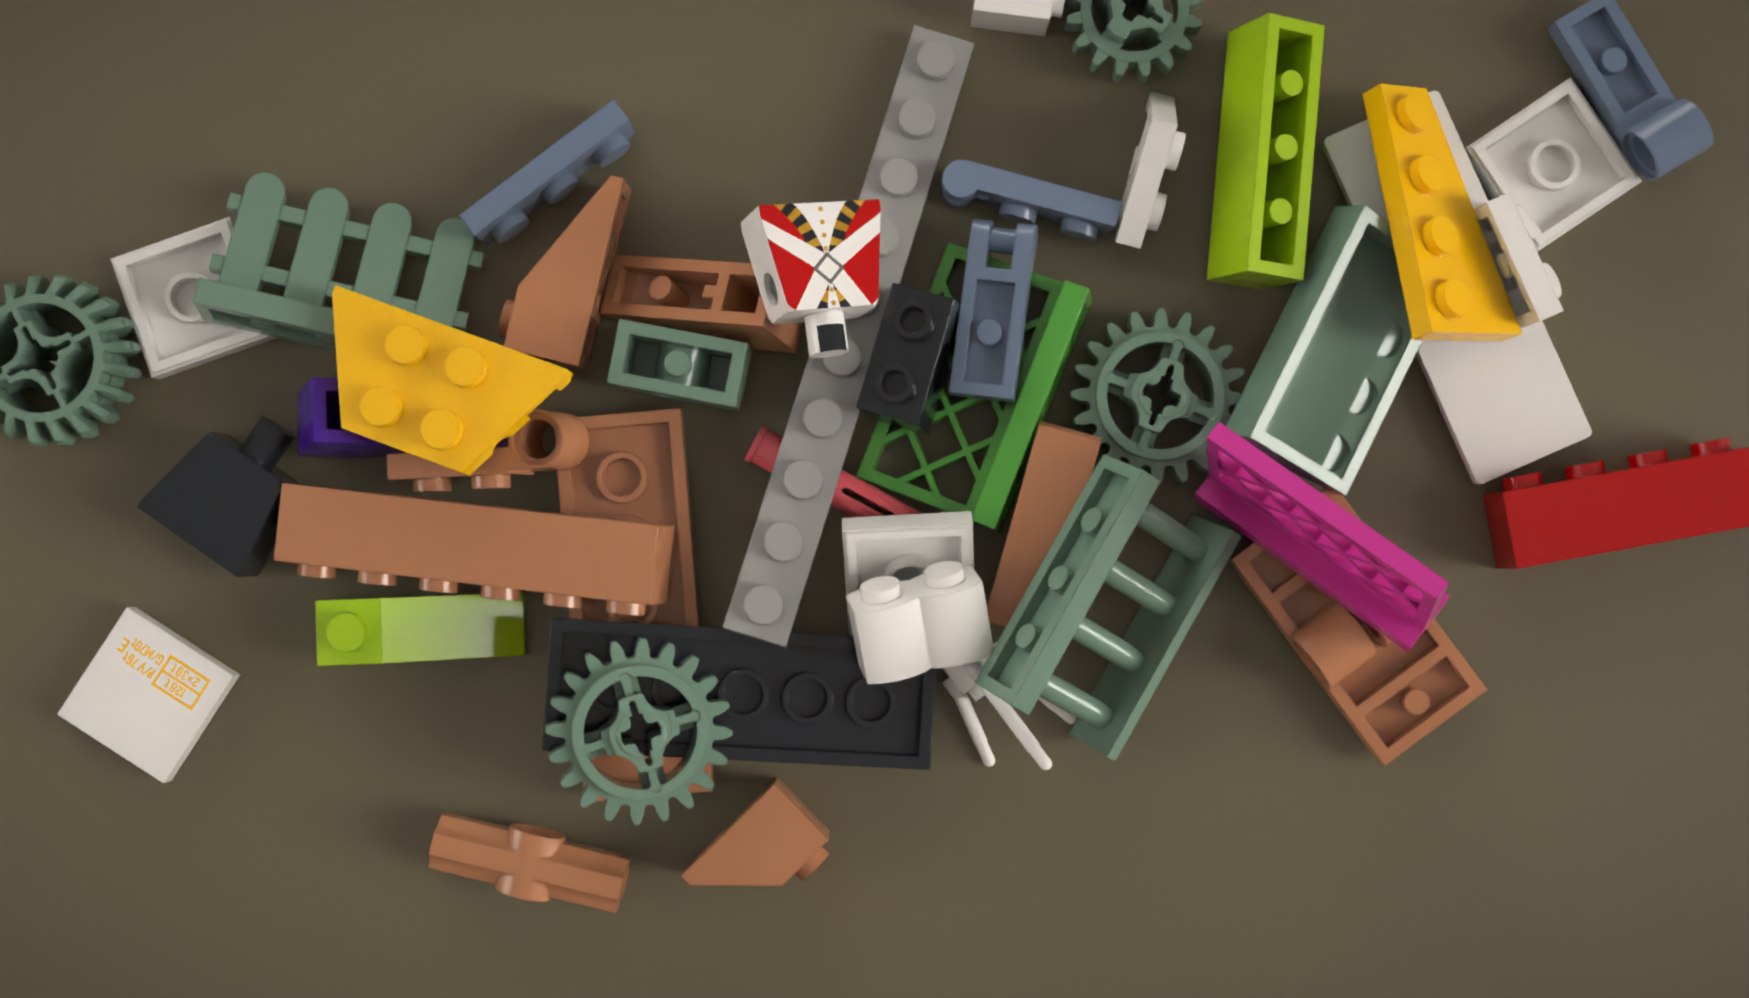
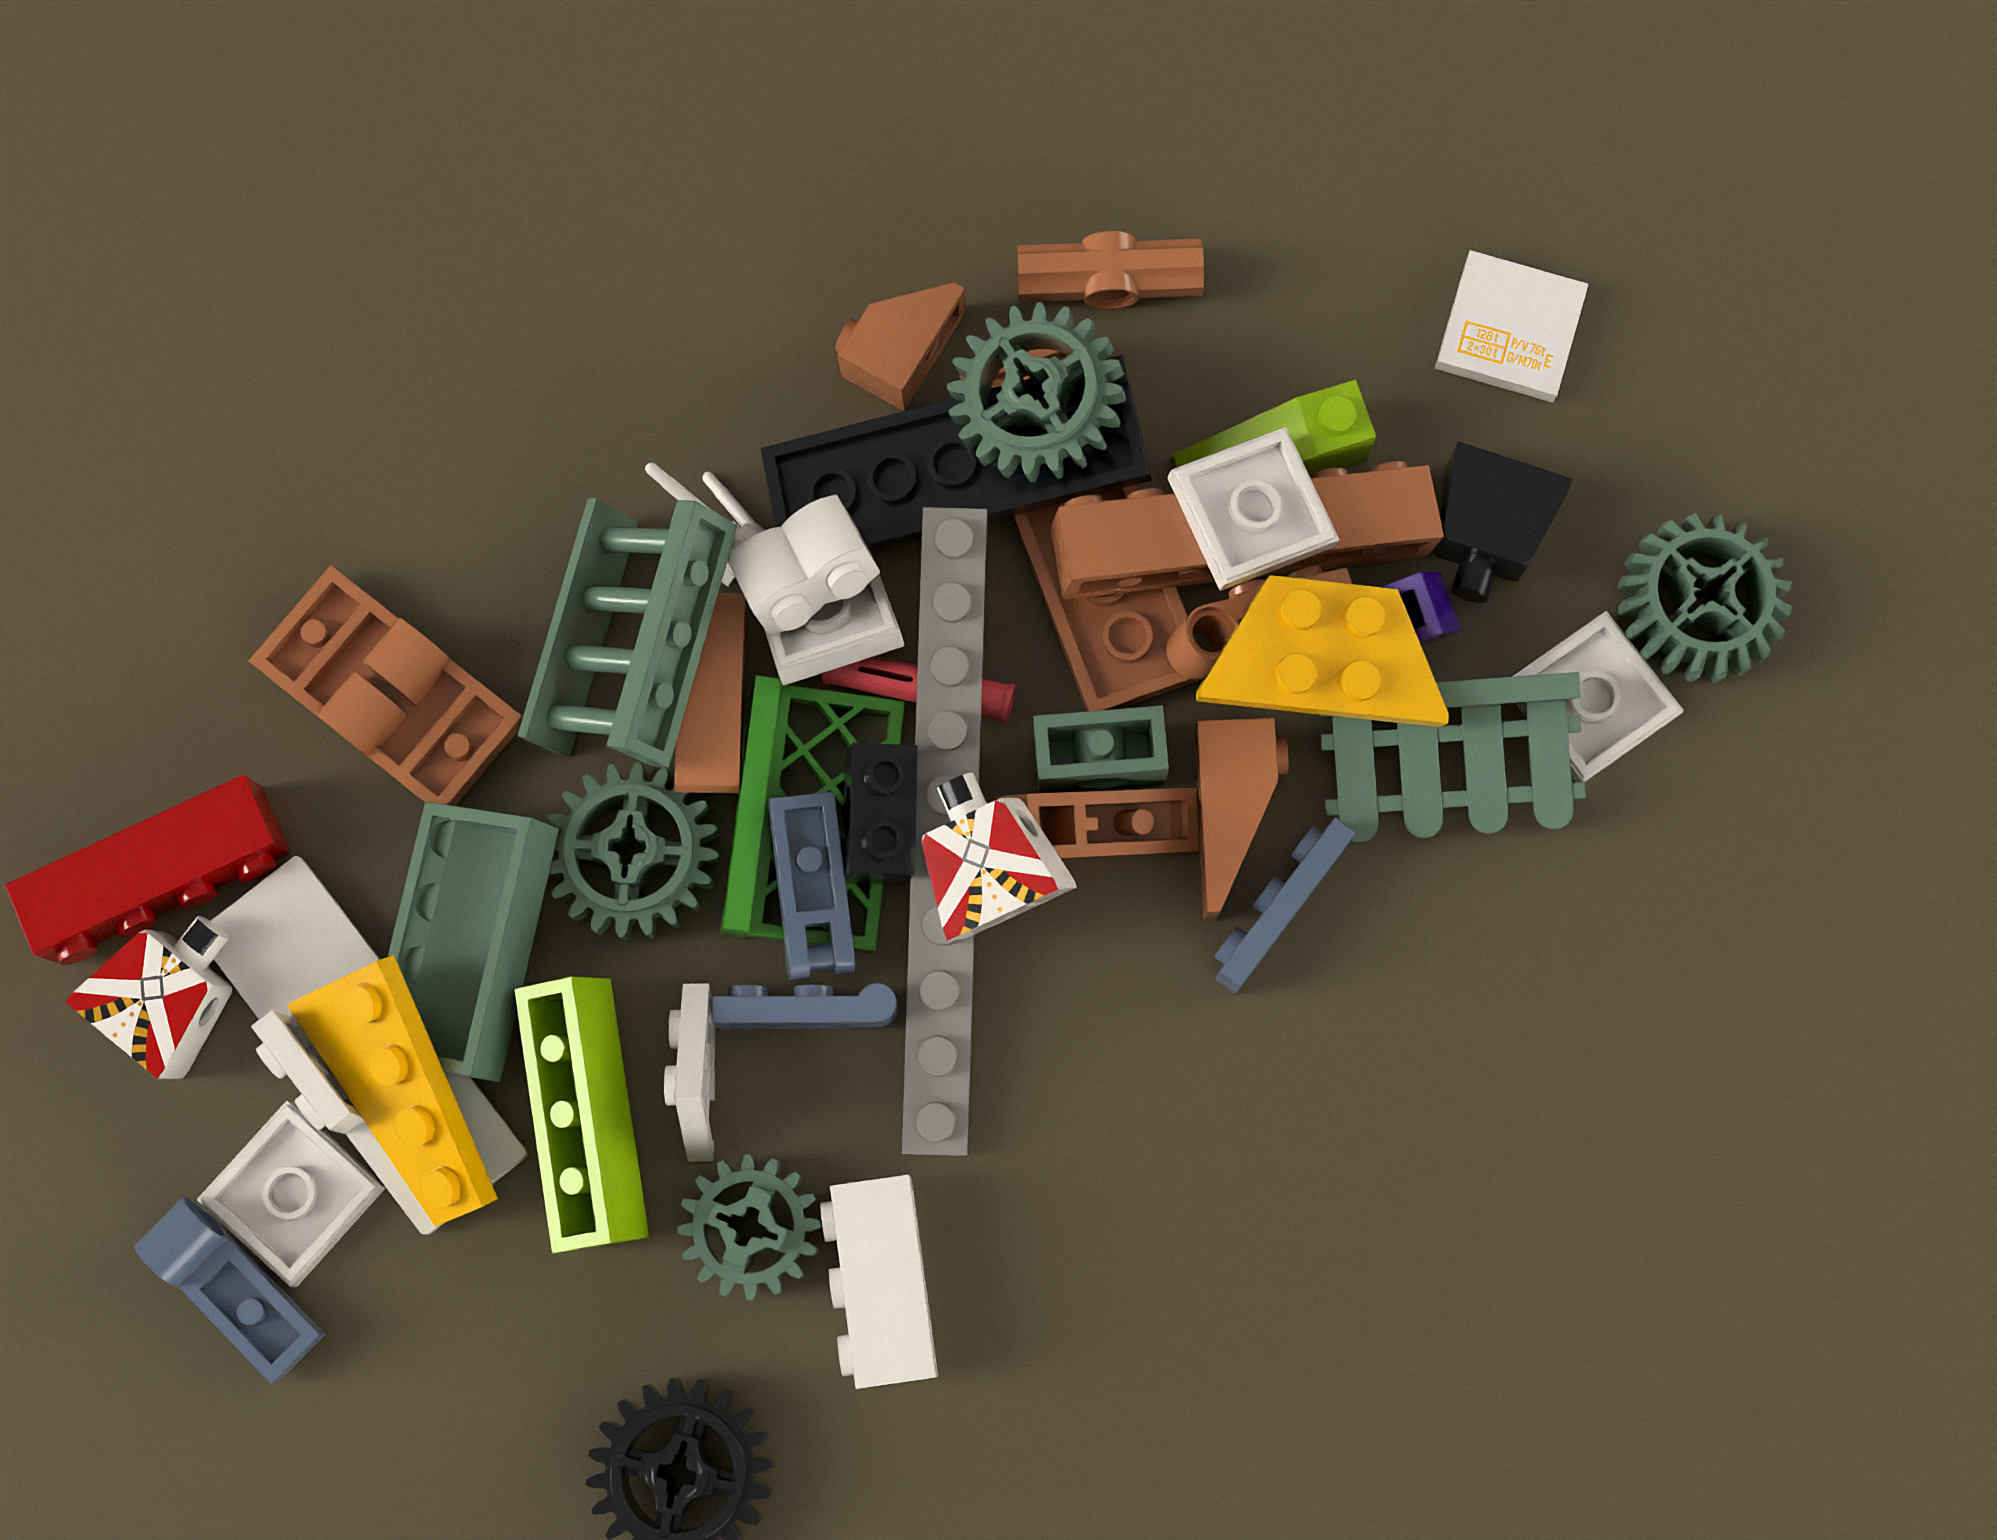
camera: 165 degrees right, 10 degrees down
(458, 553) = (1253, 508): none -> white tile
(1320, 540) = (438, 742): dark pink fence -> none
(1641, 377) = (158, 997): none -> torso

